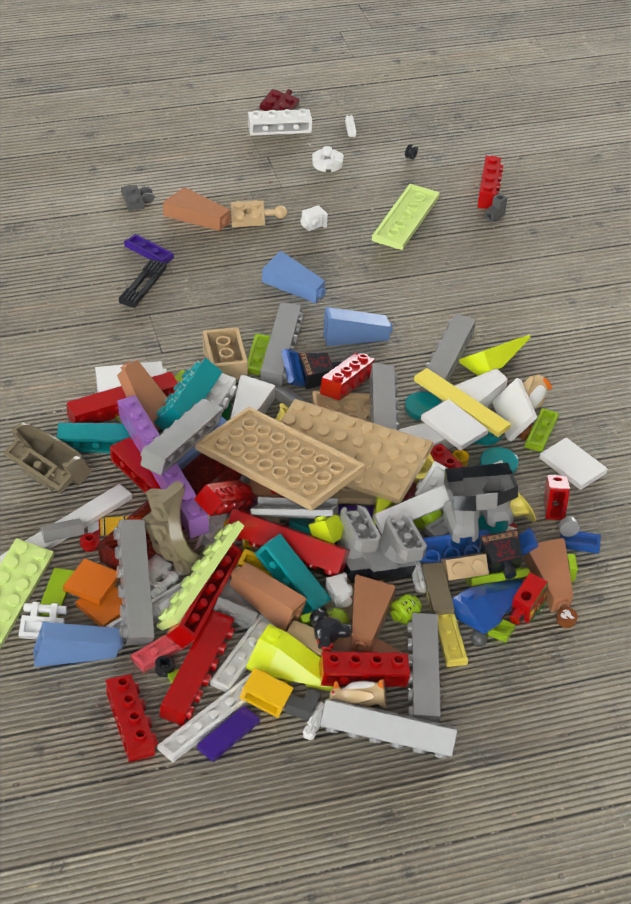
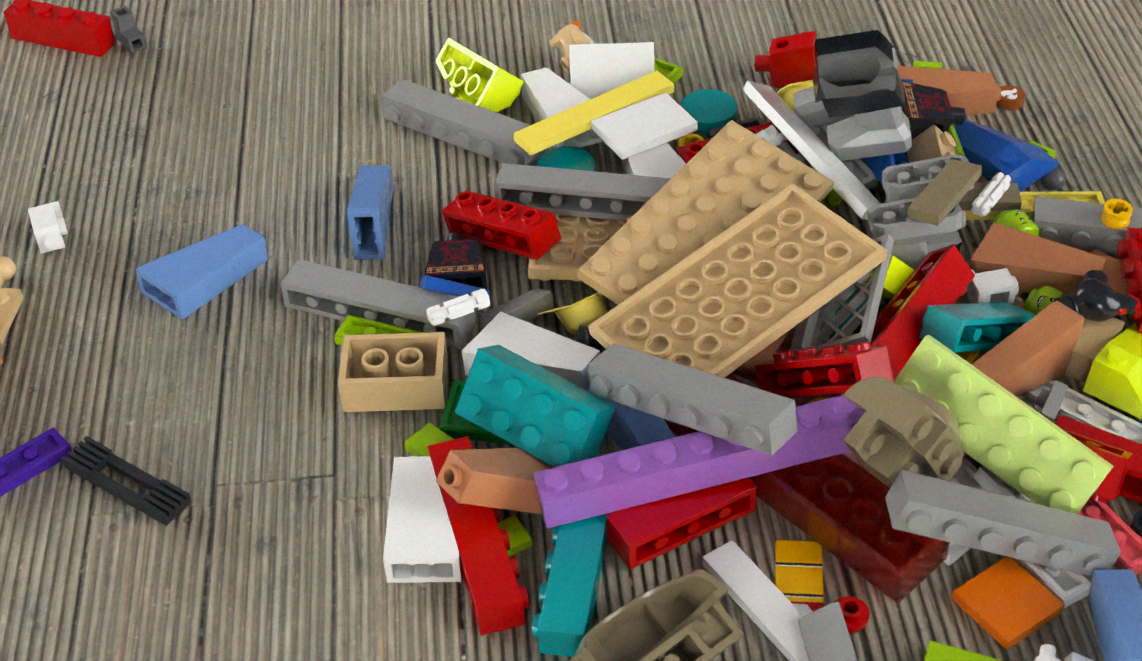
camera: 75 degrees left, 0 degrees up
(91, 581) = (966, 609): orange tile -> none
(270, 366) = (458, 307): none -> white axle
(376, 533) = (944, 192): none -> dark tan tile
(405, 216) = (96, 125): yellowish green plate -> none
(423, 644) = (1116, 213): none -> yellow bush
(431, 590) = (991, 194): none -> white axle
(529, 599) = (1000, 109): red torso -> none
(573, 463) = (714, 49): white tile -> none

